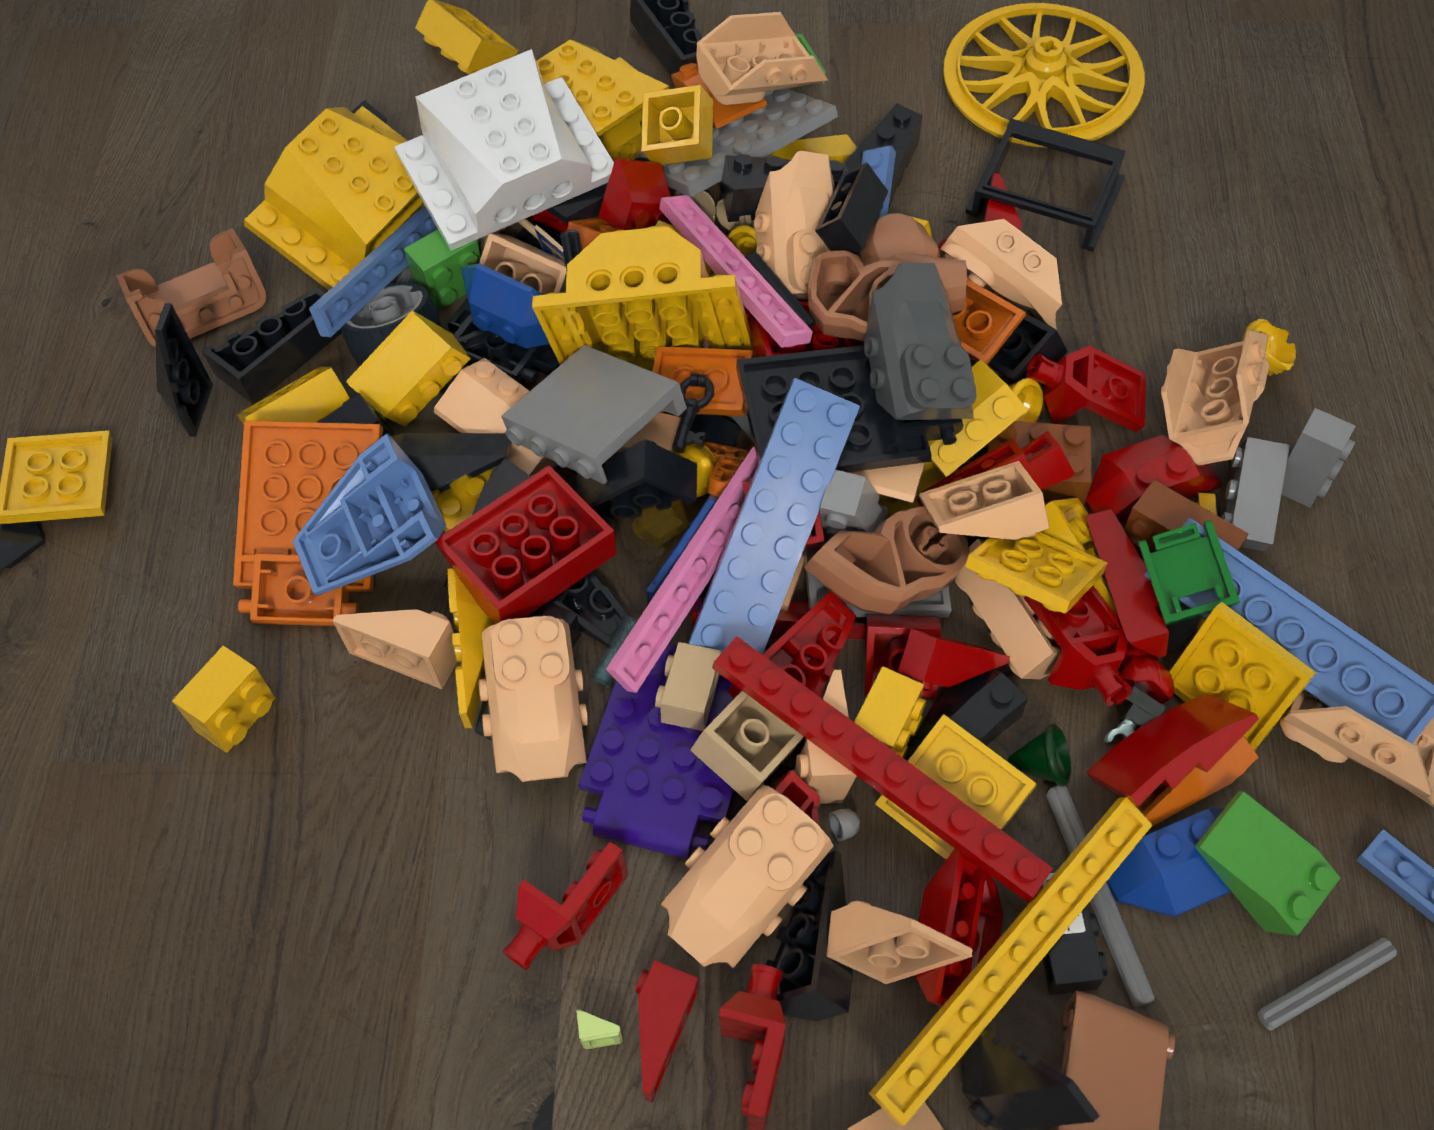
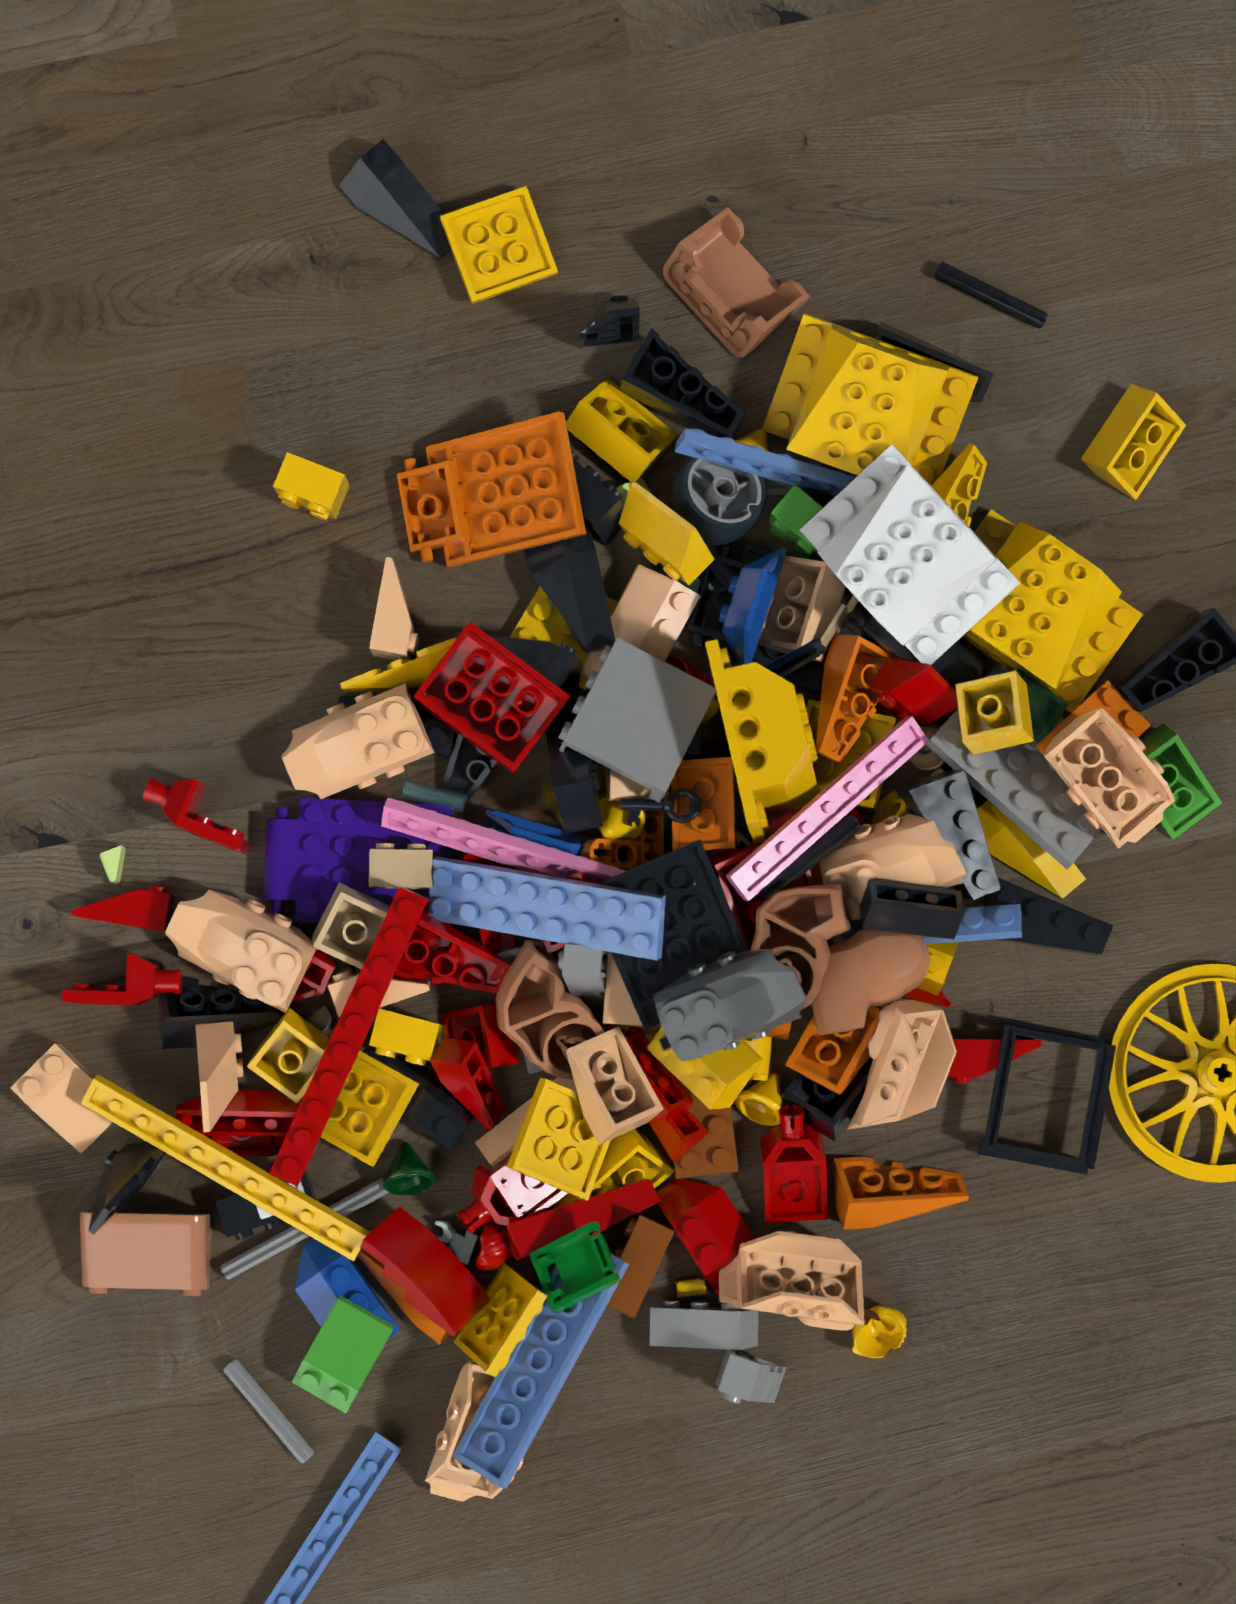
camera: 75 degrees right, 25 degrees up
(295, 113) = (991, 295): none -> black axle
(369, 520) = (485, 558): medium blue wedge -> none
(886, 853) = (290, 1055): none -> yellow brick
(1127, 320) = (881, 1194): none -> orange wedge

